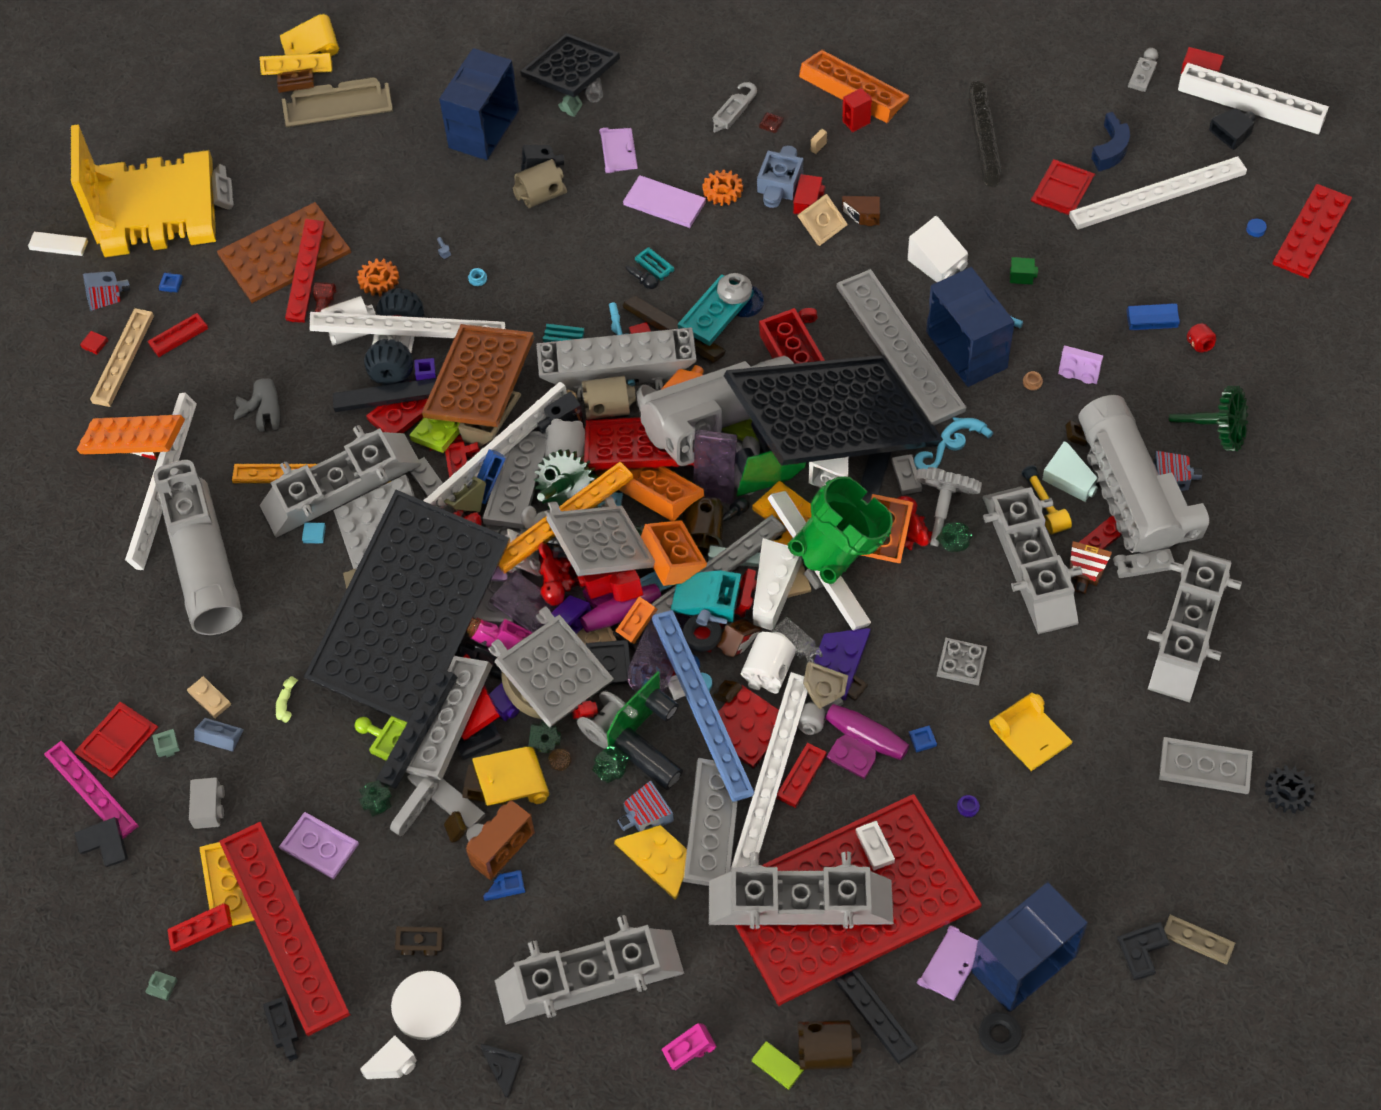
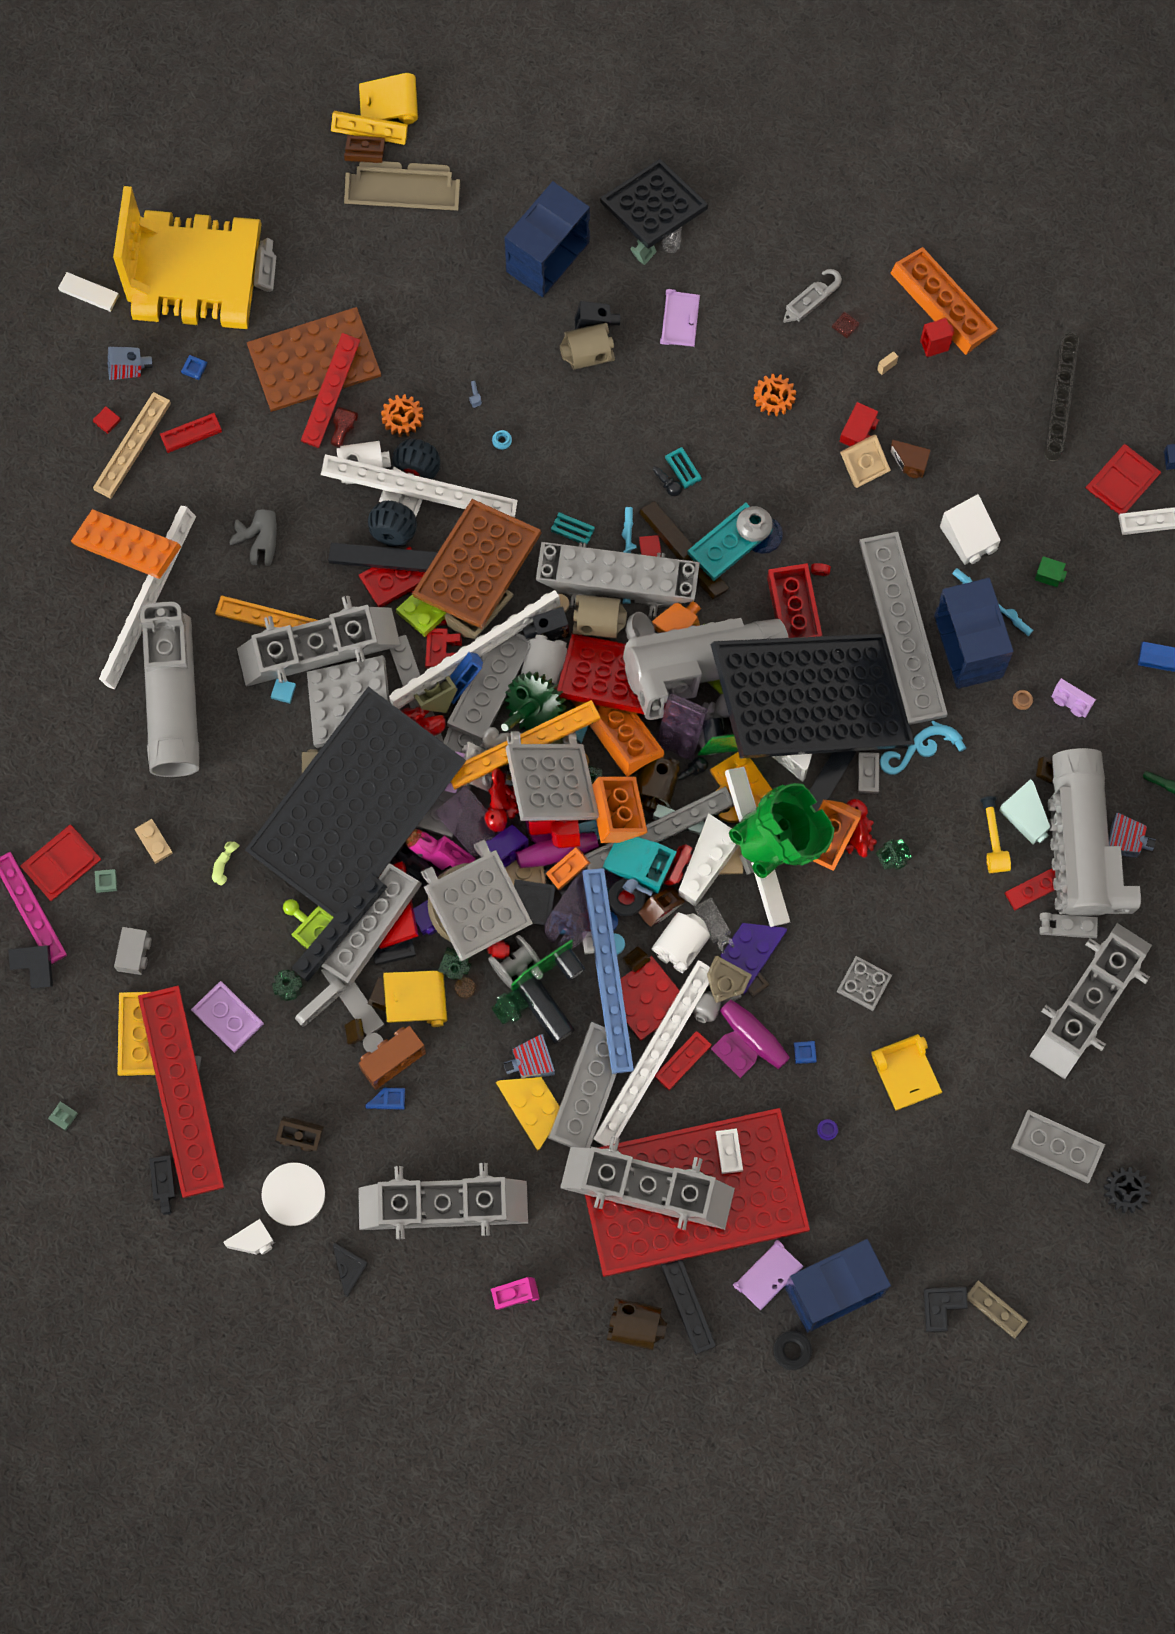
camera: 10 degrees right, 15 degrees up
(199, 927) = (106, 1072): red plate -> none
(217, 734) = (155, 881): sand blue slope -> none
(424, 369) = (426, 540): dark purple brick -> none
(664, 201) = (711, 395): lavender tile -> none
(777, 1065) = (588, 1328): lime tile -> none
(779, 176) = (836, 397): sand blue brick -> none
(947, 484) = (901, 800): light grey gear -> none
(1032, 557) = (962, 893): light grey piece -> none
(1092, 562) = (1011, 917): torso -> none

